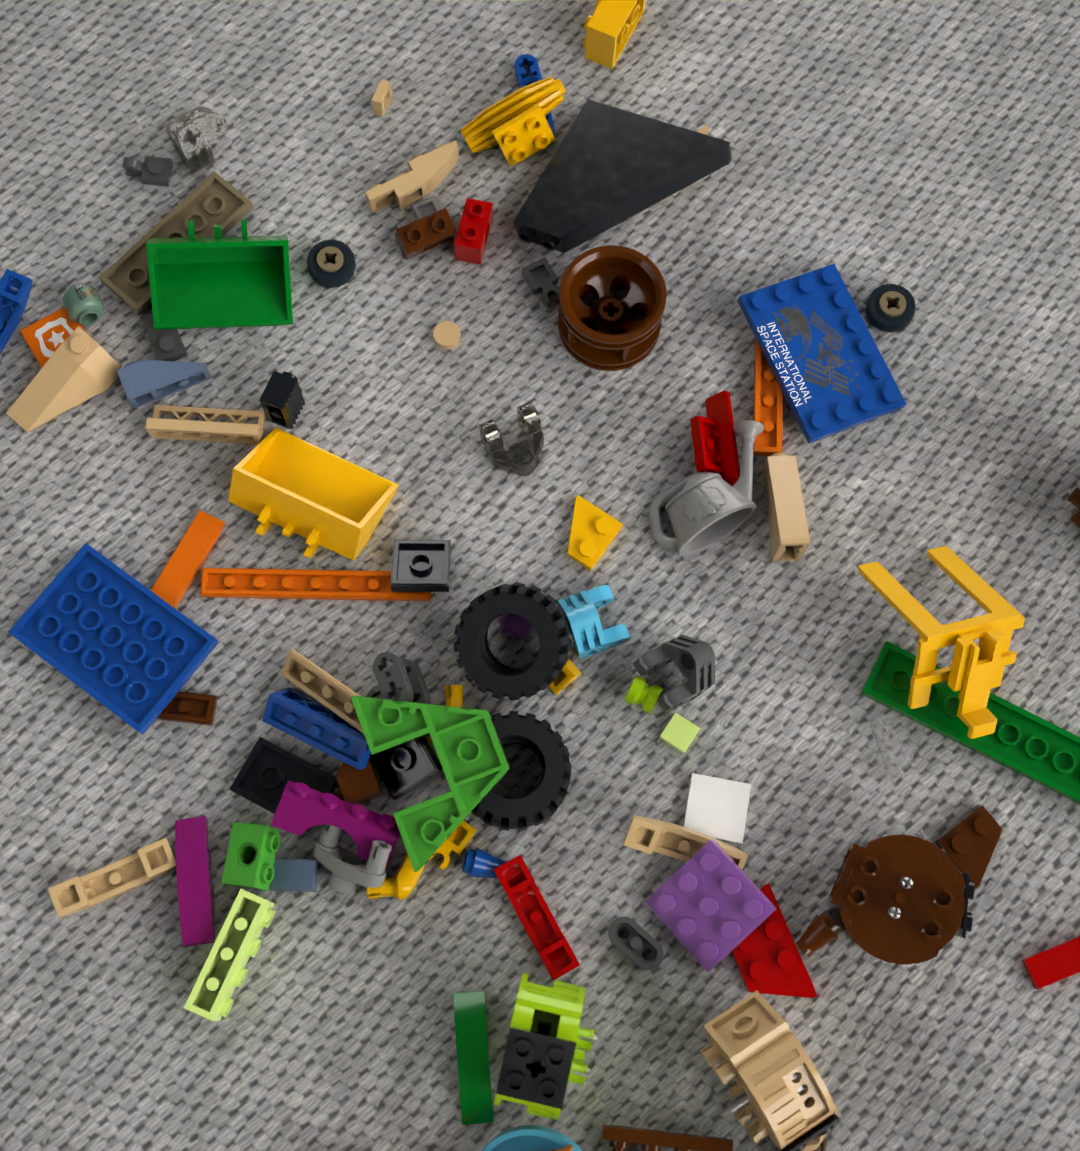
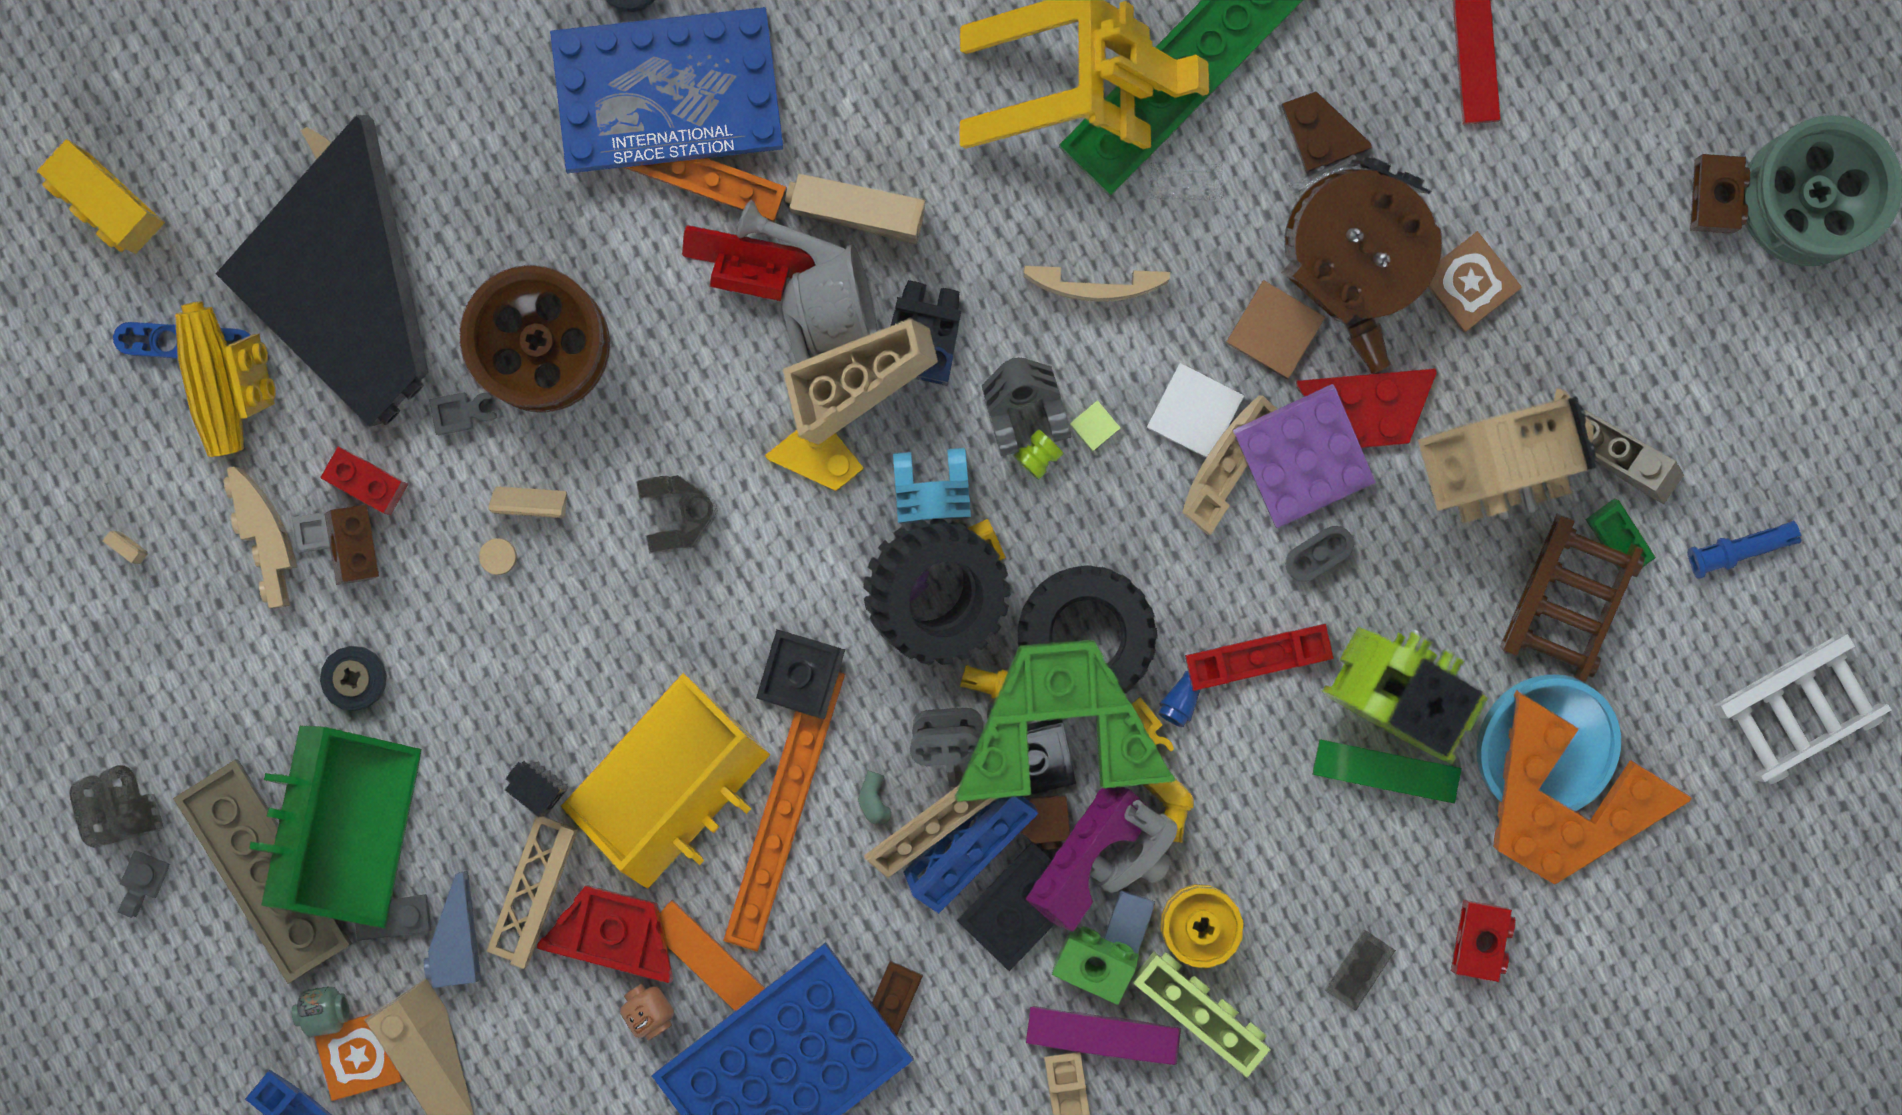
camera: 70 degrees left, 15 degrees up
(133, 526) = (647, 1012): none -> nougat head
(188, 487) = (612, 933): none -> red wing
(285, 930) = (1203, 947): none -> yellow wheel
(300, 1083) = (1359, 970): none -> clear smoke plate
(339, 645) = (870, 801): none -> sand green arm
(491, 343) = (528, 502): none -> tan slope
(659, 534) = (855, 377): none -> tan wedge
(705, 581) = (941, 320): none -> black hips
(801, 735) = (1049, 280): none -> tan slope
(803, 854) = (1275, 329): none -> medium nougat tile
(898, 1005) = (1472, 282): none -> medium nougat tile

